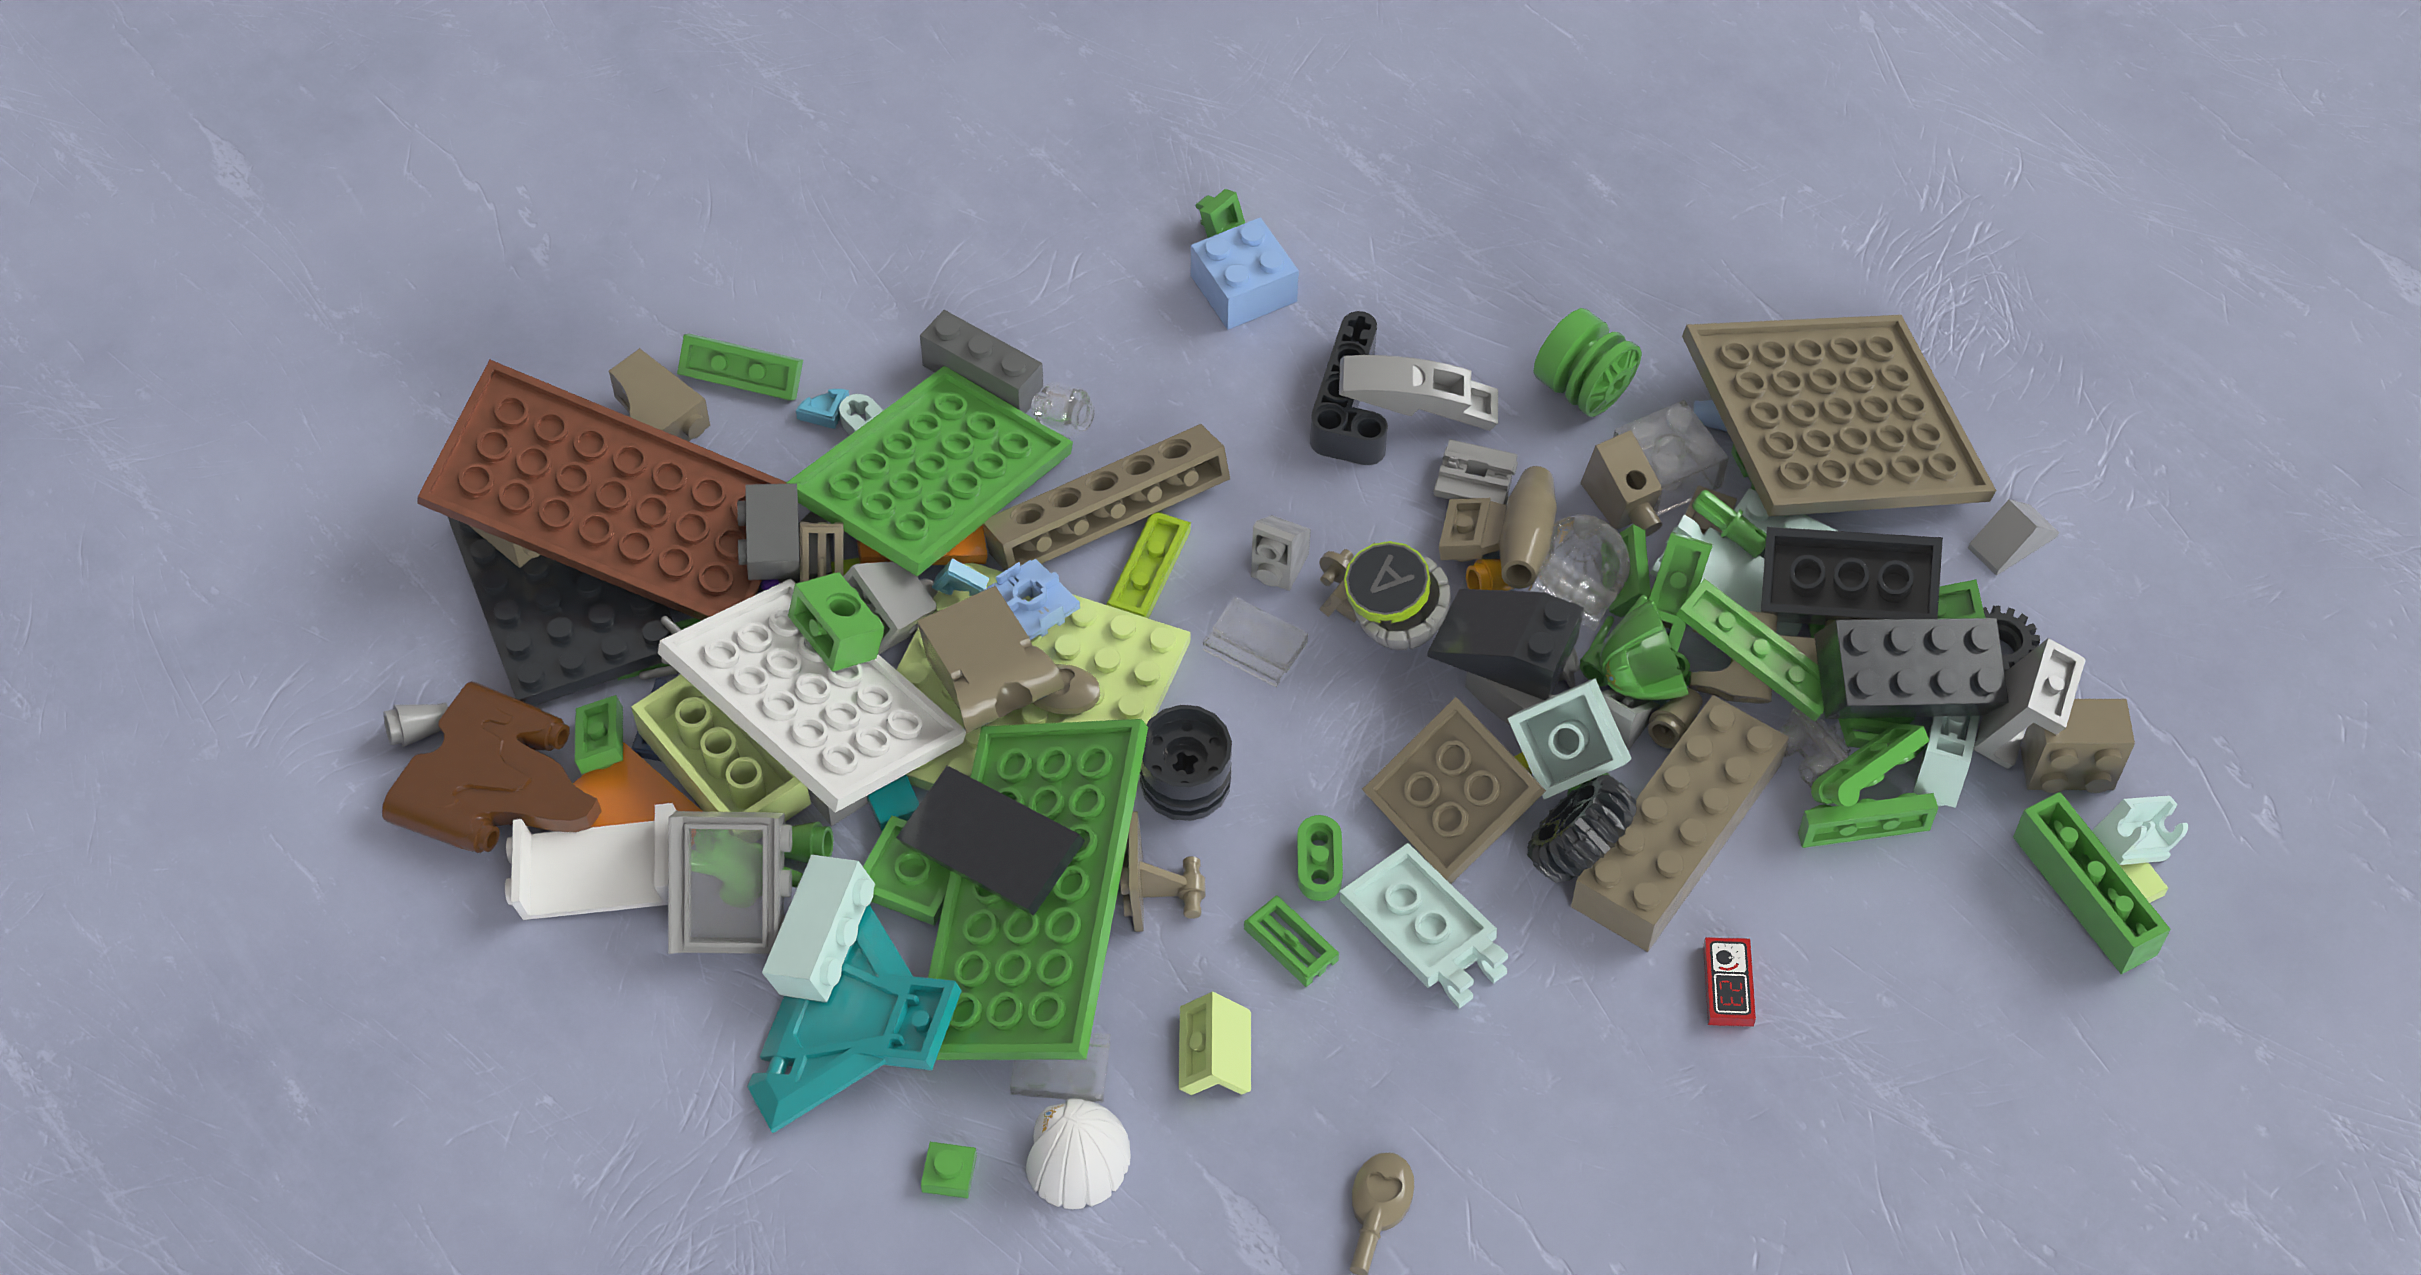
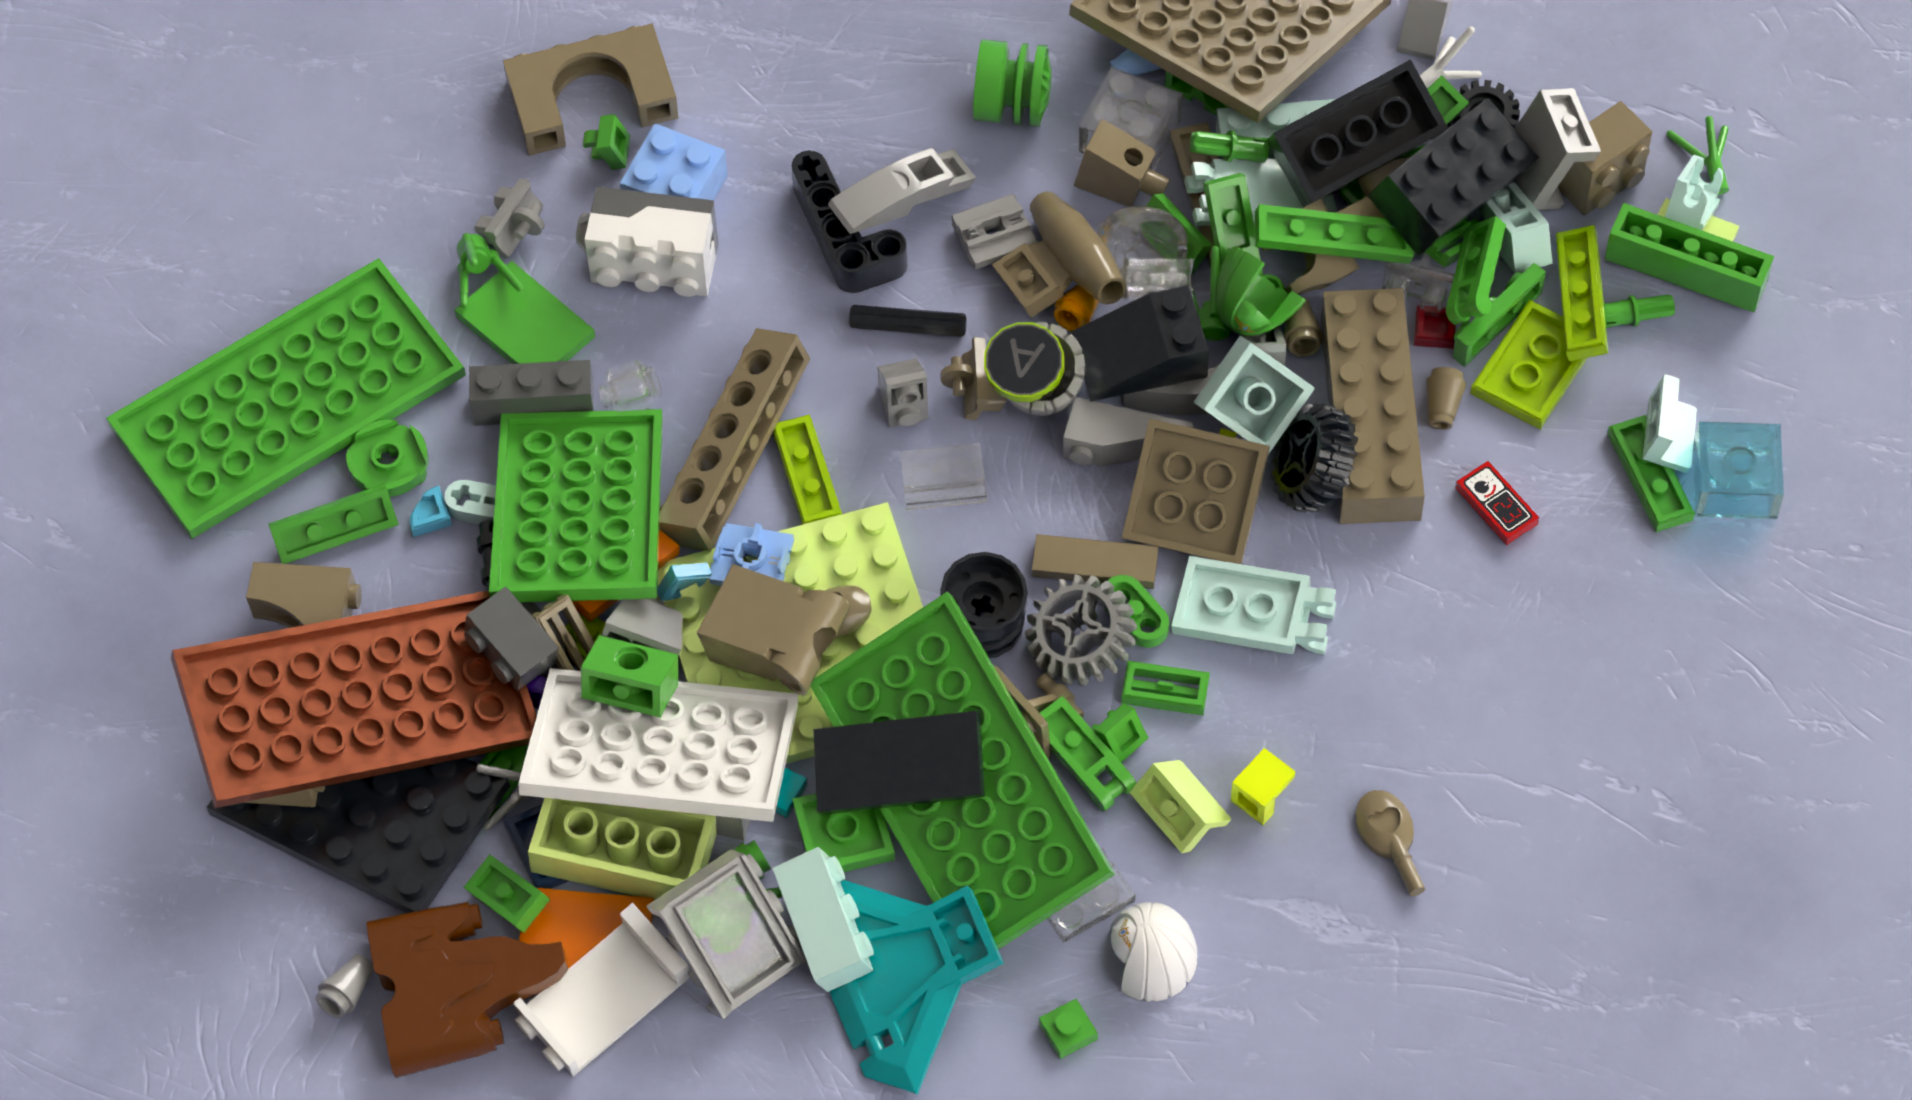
camera: 35 degrees left, 5 degrees up
(795, 252) = (285, 397): none -> bright green plate
(835, 363) = (399, 440): none -> bright green plate
(1032, 308) = (526, 323): none -> bright green tile
(1034, 236) = (475, 259): none -> bright green plant
(1091, 226) = (515, 218): none -> light grey hips
(1165, 942) = (1085, 754): none -> bright green plate
(1177, 306) = (649, 240): none -> white piece
(1210, 136) = (626, 55): none -> dark tan arch
(1214, 950) = (1121, 731): none -> bright green tile
(1241, 862) = (1084, 599): none -> light grey gear
(1295, 1075) = (1260, 785): none -> neon yellow panel
(1324, 794) = (1066, 556): none -> dark tan tile
(1340, 501) = (907, 320): none -> black axle
(1420, 690) = (1107, 433): none -> light grey slope
(1757, 857) = (1444, 396): none -> dark tan cone
(1794, 796) = (1433, 330): none -> dark red tile
(1868, 886) = (1529, 367): none -> lime tile
(1898, 1051) = (1653, 483): none -> bright green tile
(1947, 1022) = (1669, 427): none -> light aqua panel
(1960, 850) = (1581, 293): none -> lime tile
(1981, 1100) = (1738, 470): none -> clear light blue brick
(1986, 582) = (1446, 54): none -> white plant
(2000, 897) = (1635, 310): none -> bright green axle
(2192, 814) = (1713, 160): none -> bright green plant

